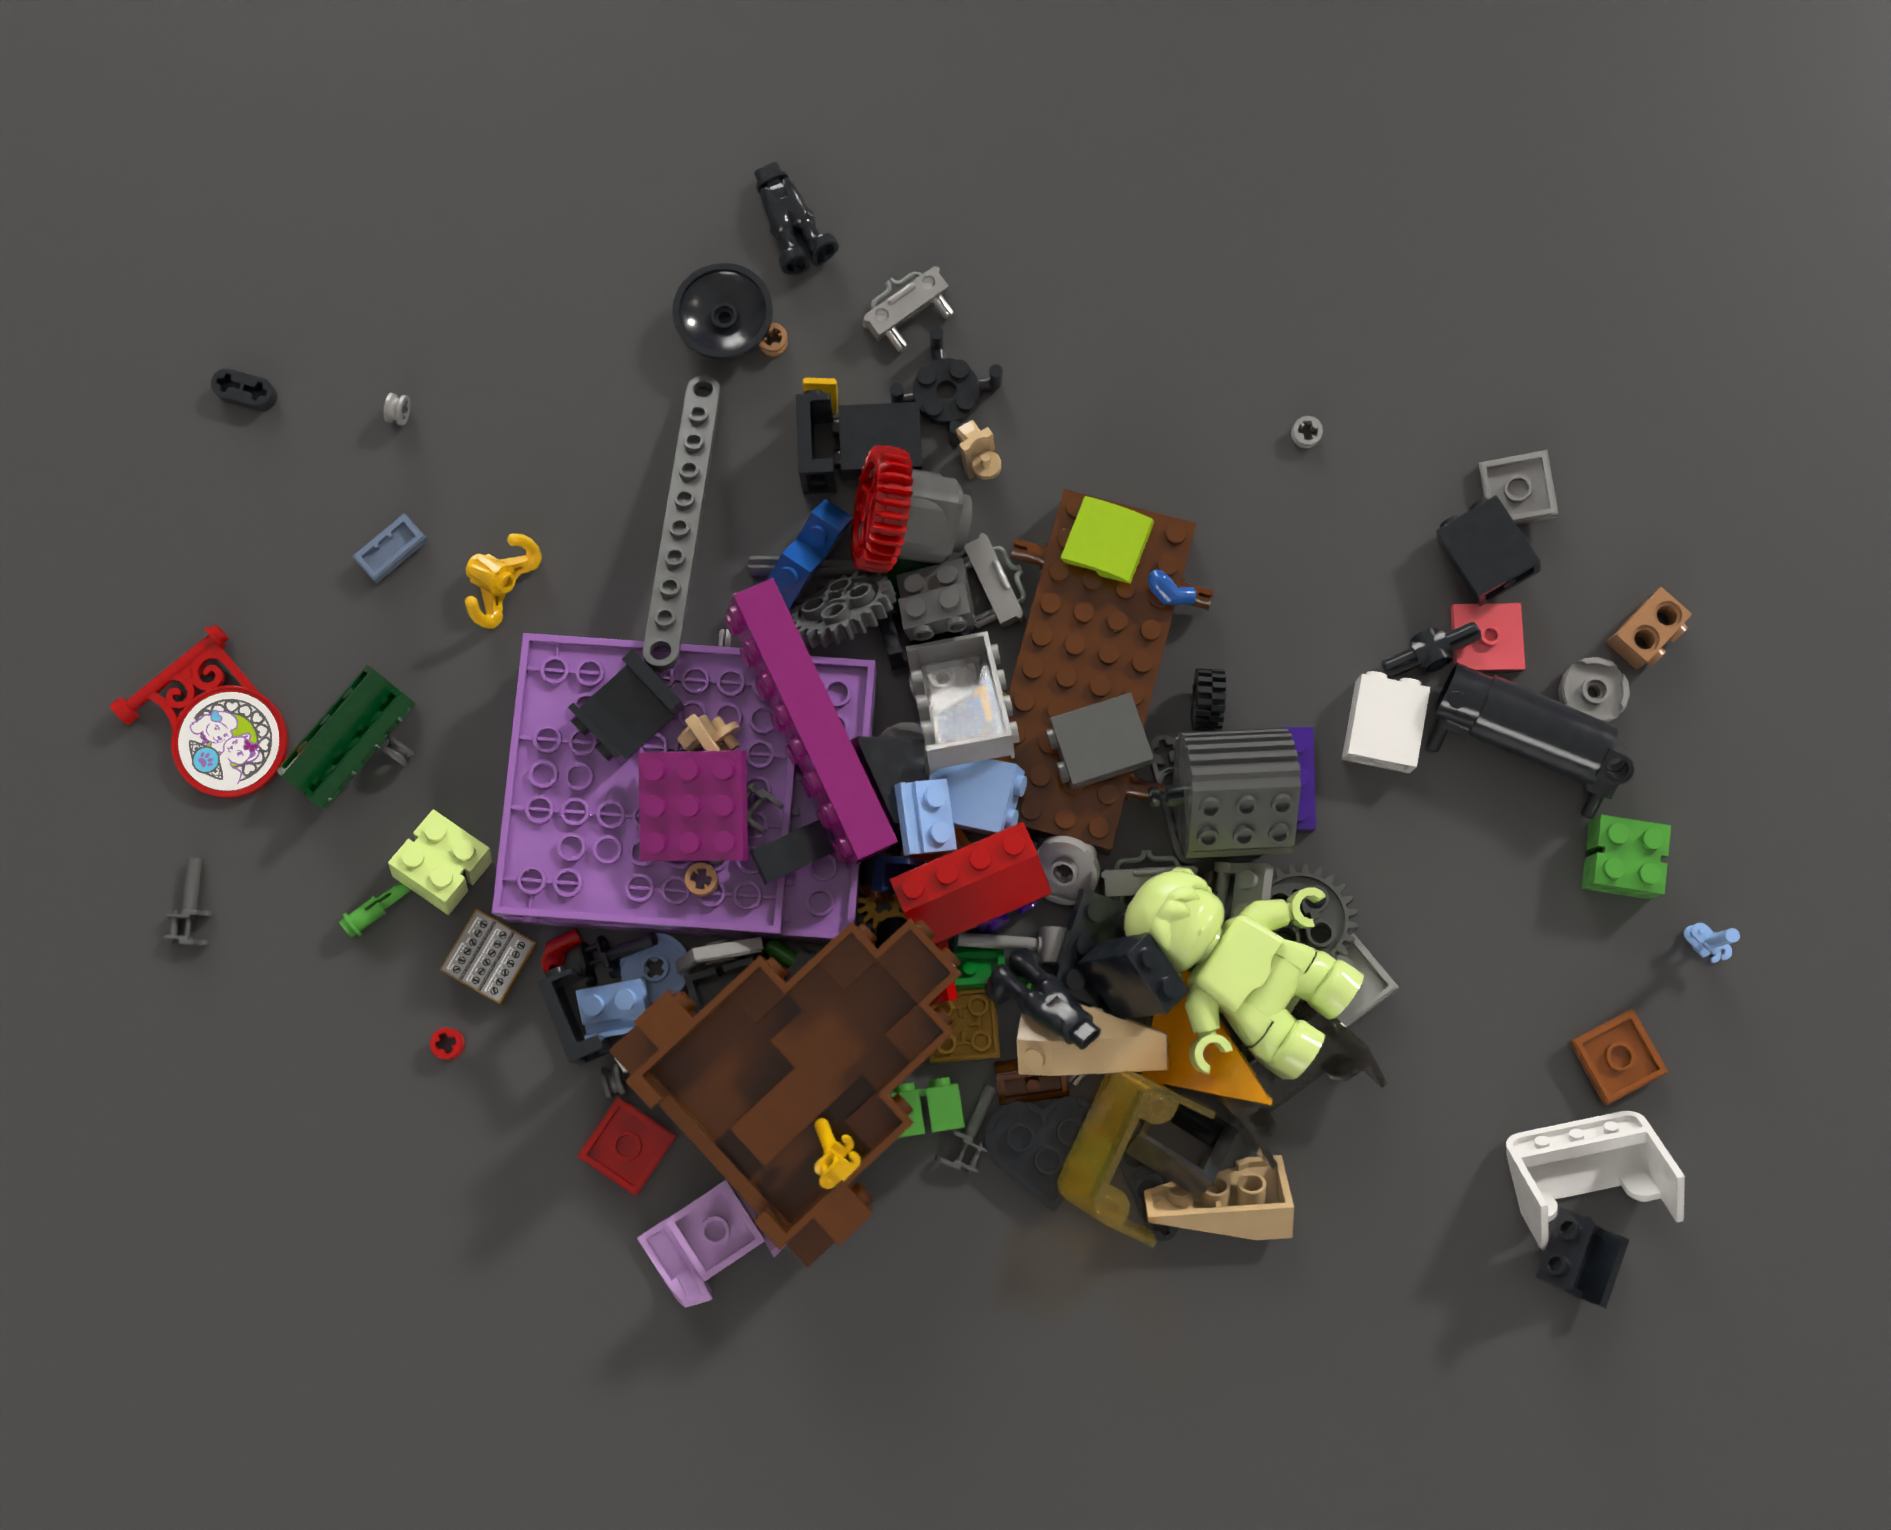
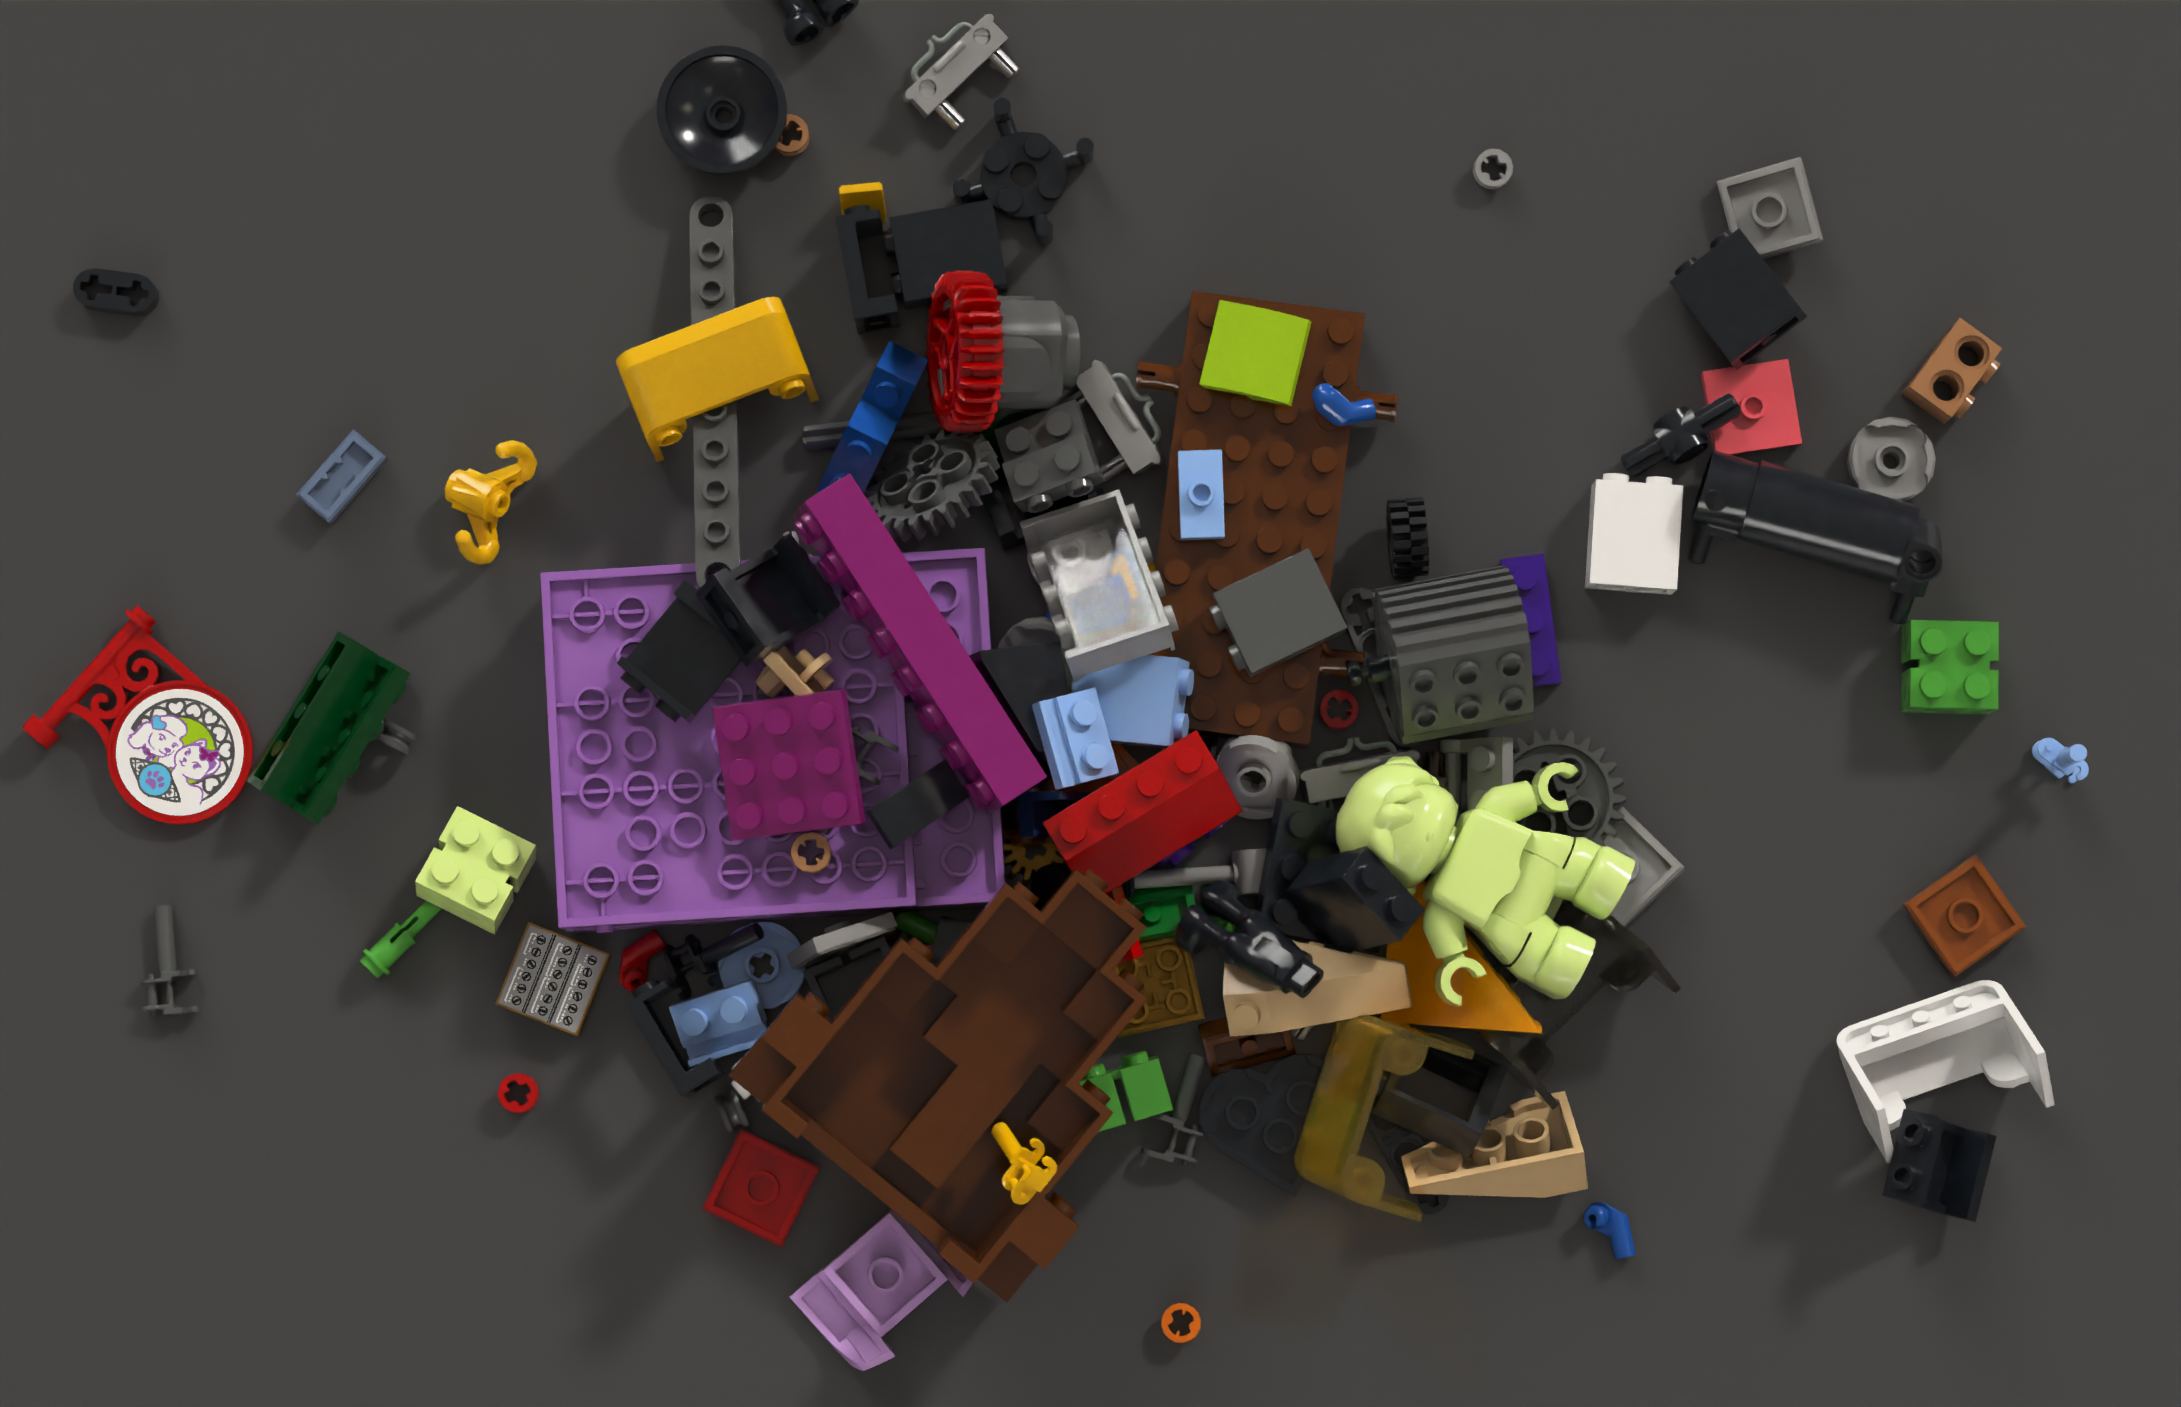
camera: 10 degrees left, 5 degrees up
(396, 408) = (319, 292): light grey bush -> none
(683, 492) = (712, 367): none -> yellow windscreen
(695, 674) = (768, 600): none -> black panel
(938, 1297) = (1168, 1319): none -> orange bush
(978, 451) = (1077, 256): tan hips -> none
(1051, 643) = (1201, 495): none -> light blue plate
(1139, 817) = (1339, 696): none -> red bush
(1309, 1269) = (1613, 1224): none -> blue arm

